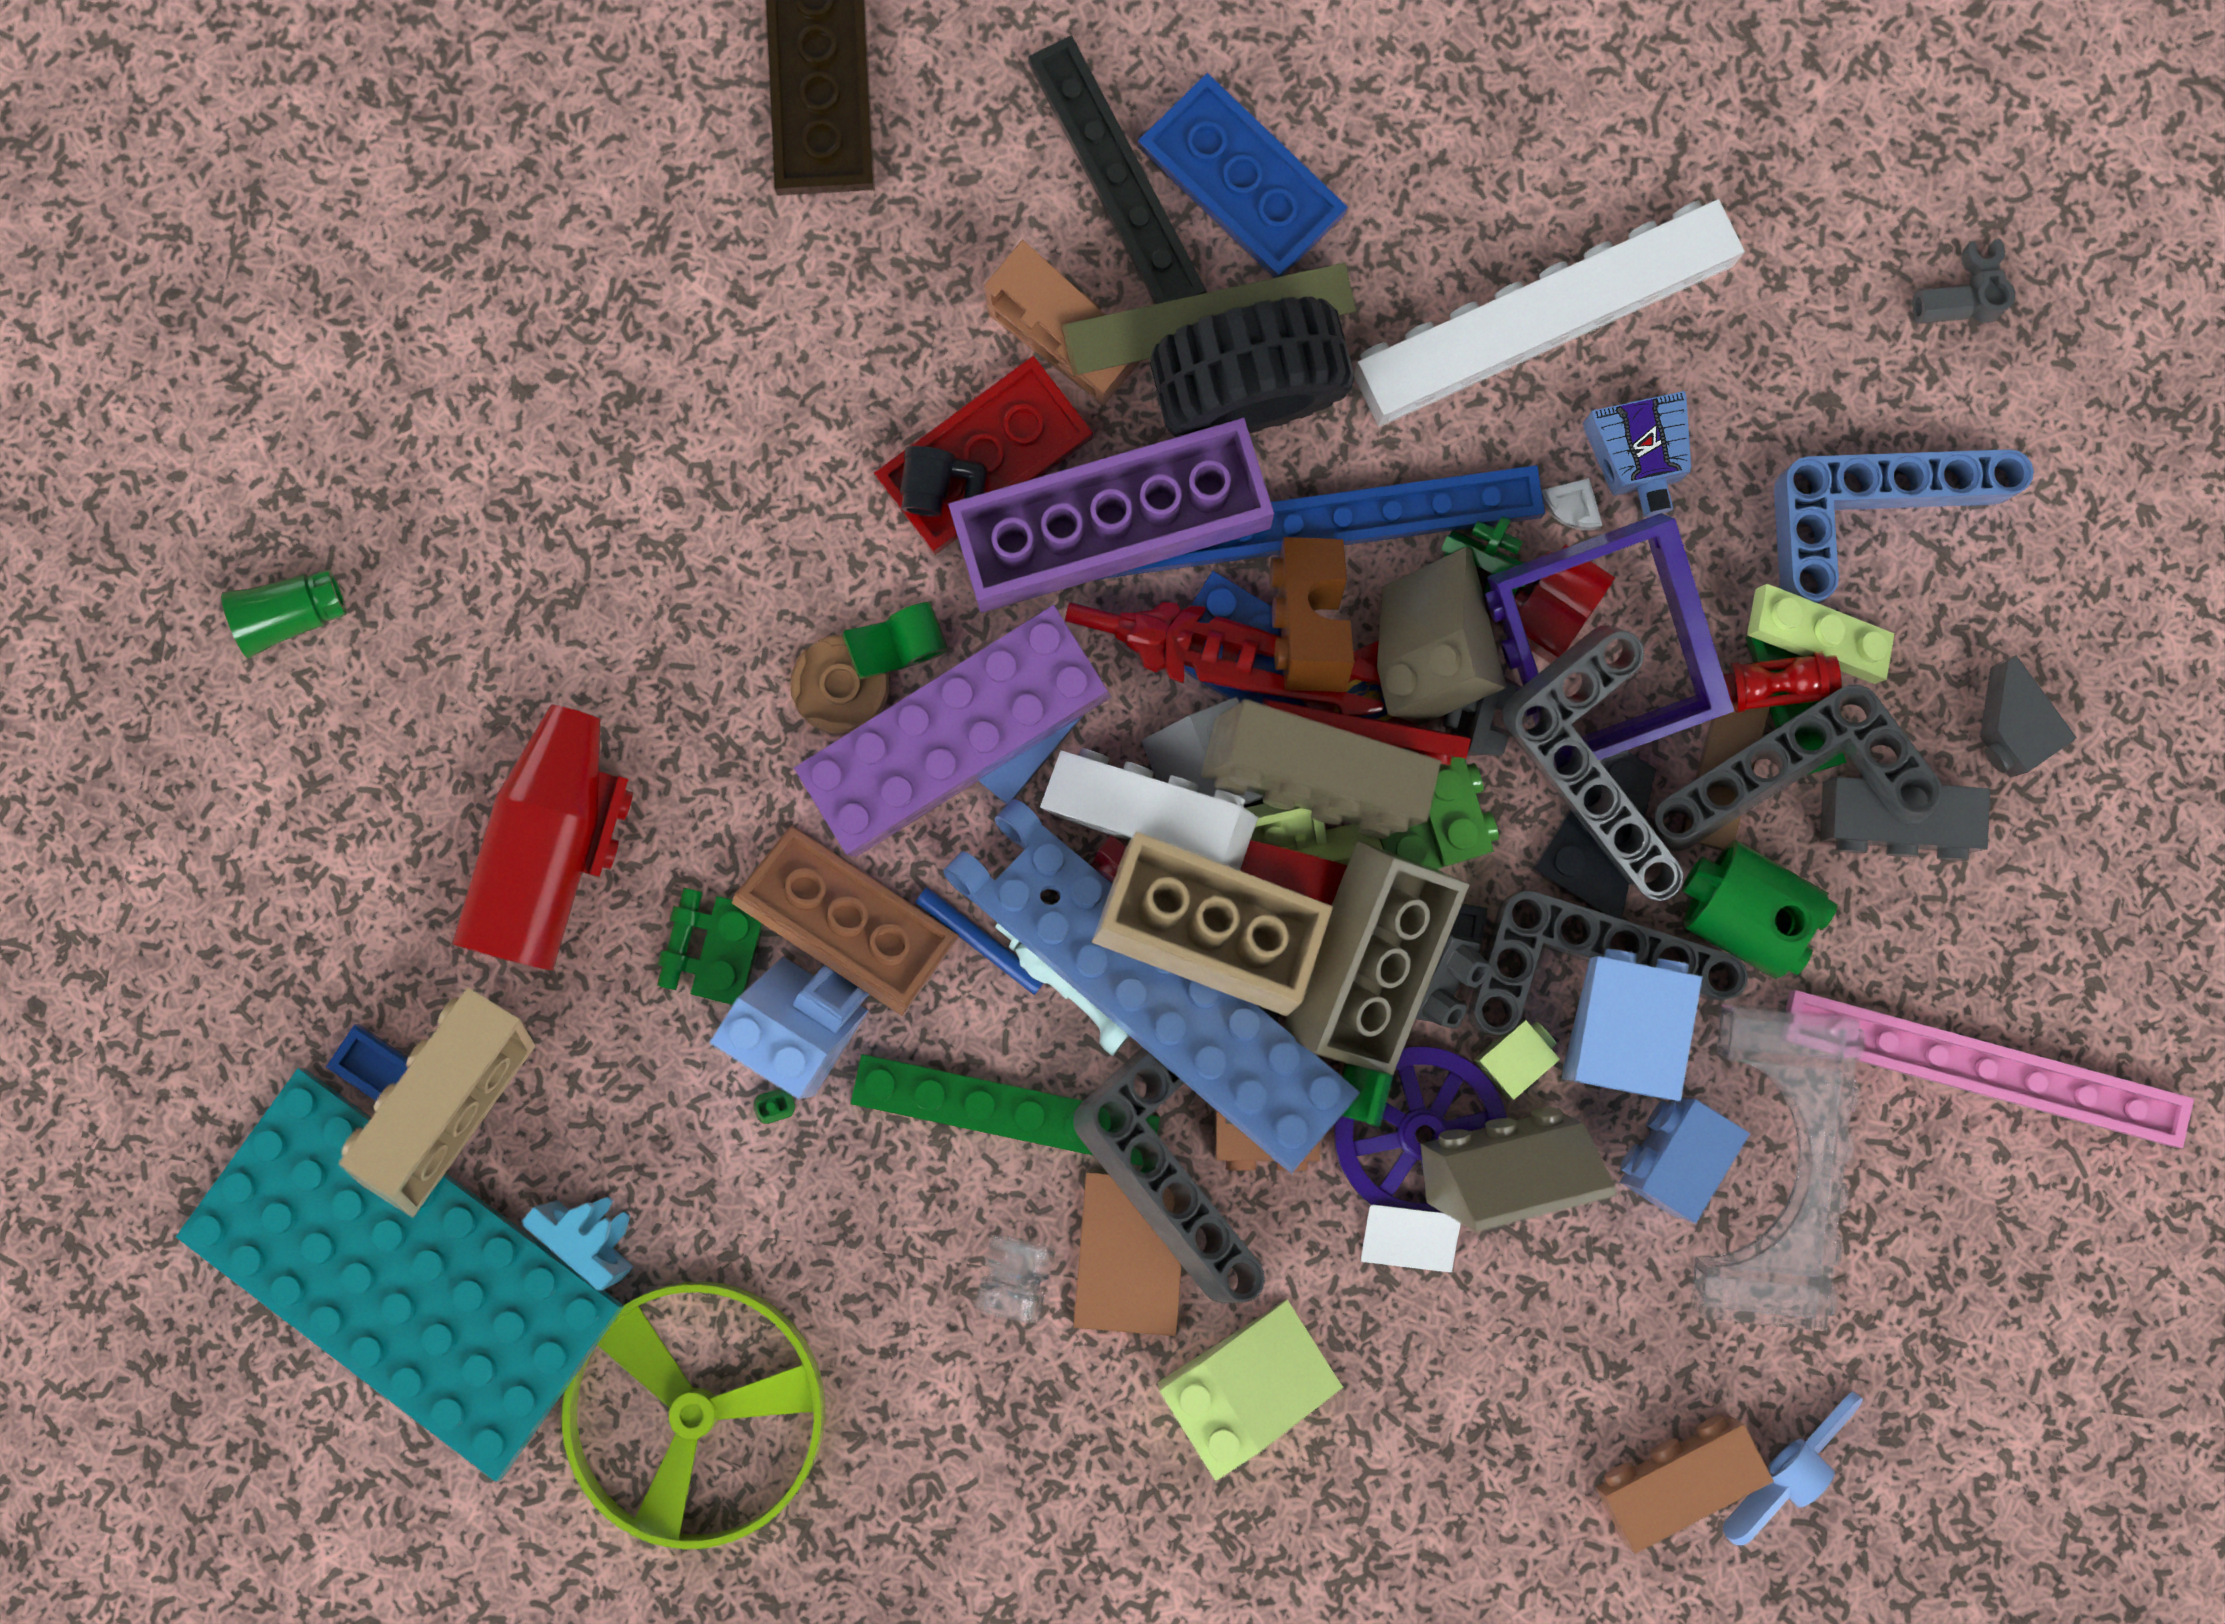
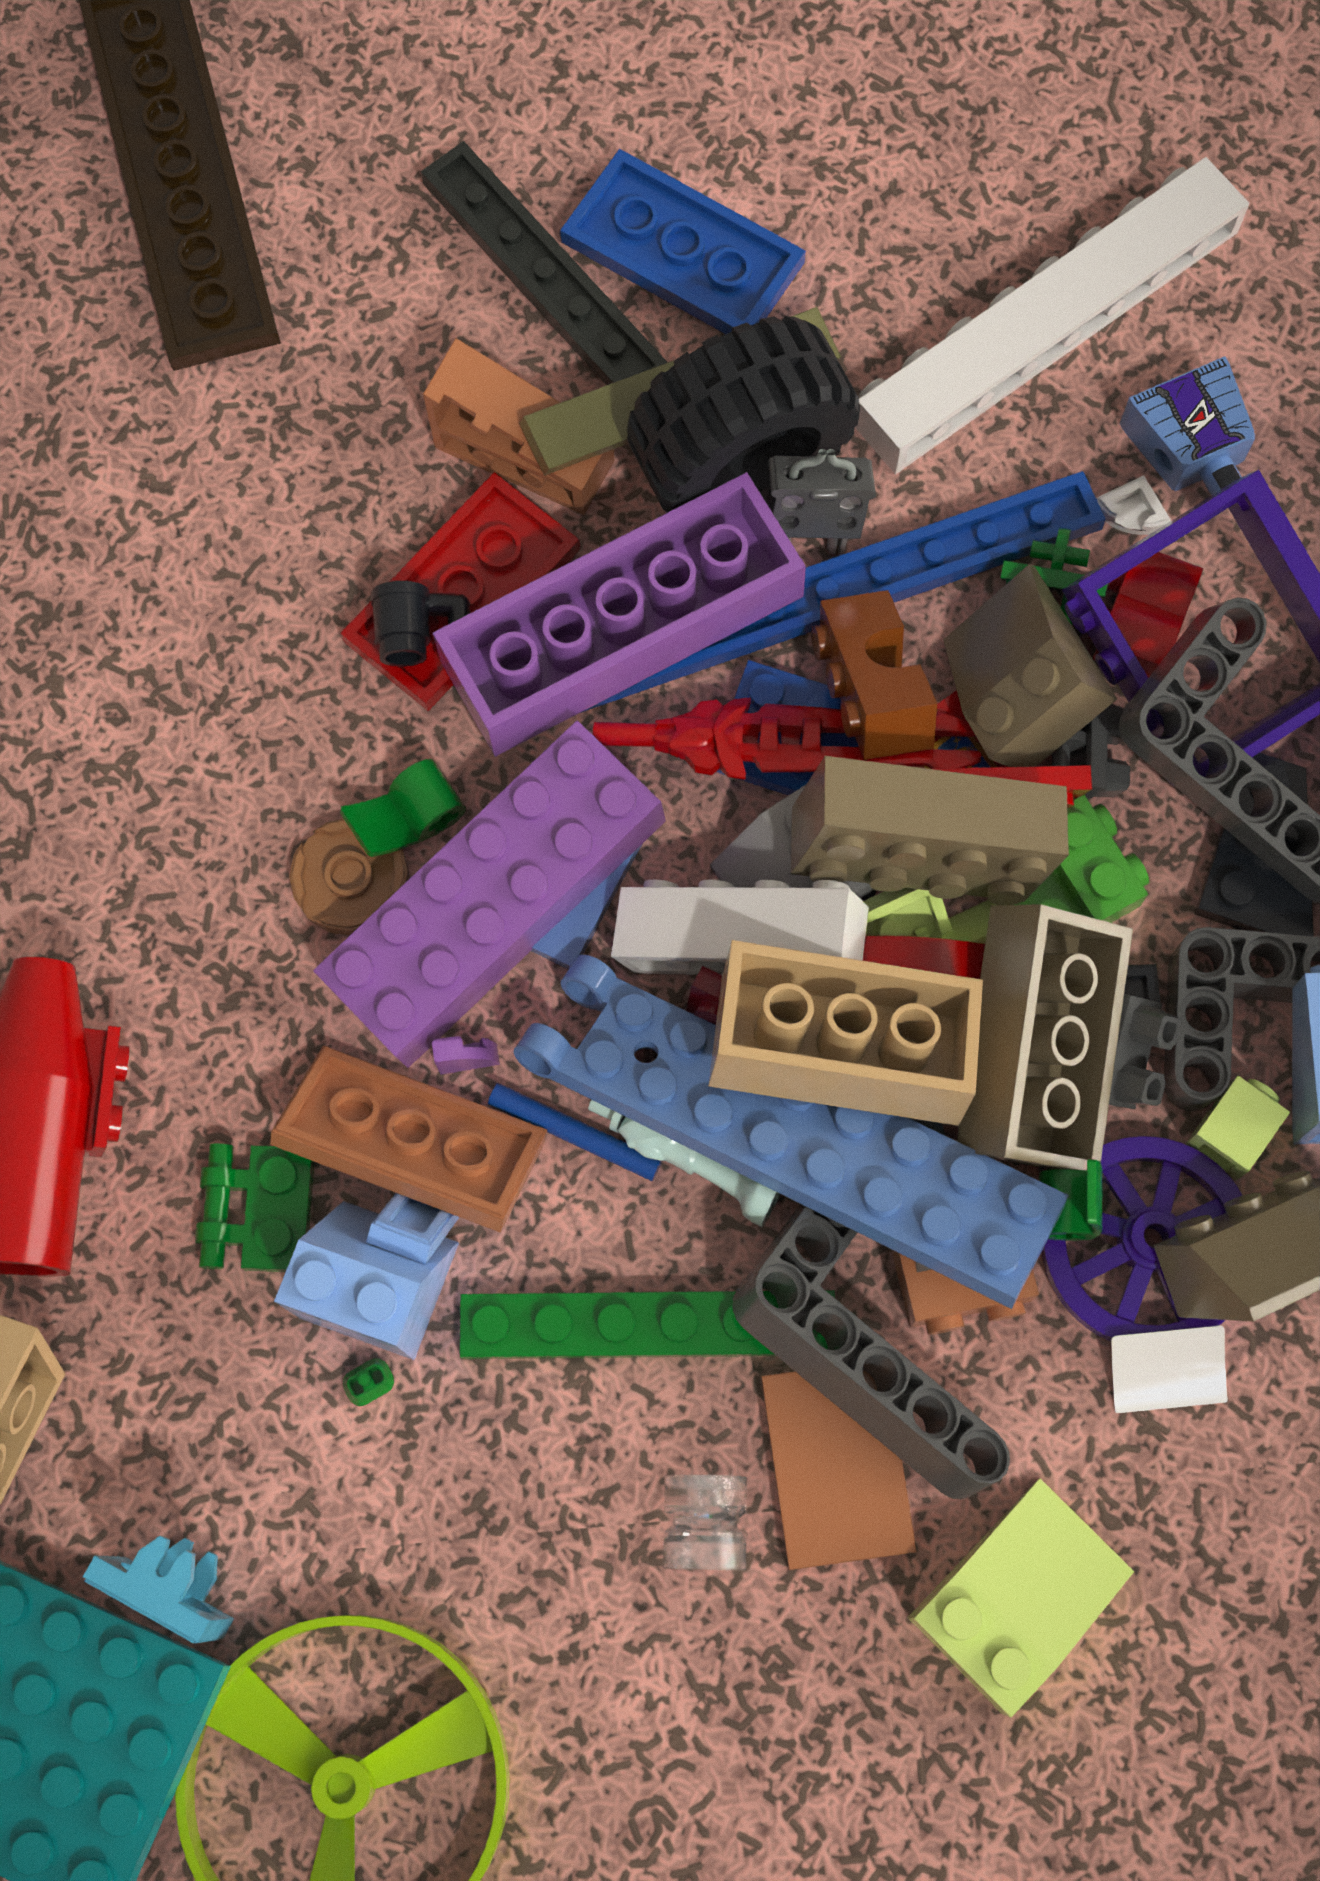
camera: 10 degrees left, 10 degrees down
(898, 858) = (453, 1056): none -> medium lavender tile
(1303, 446) = (821, 496): none -> dark grey piece

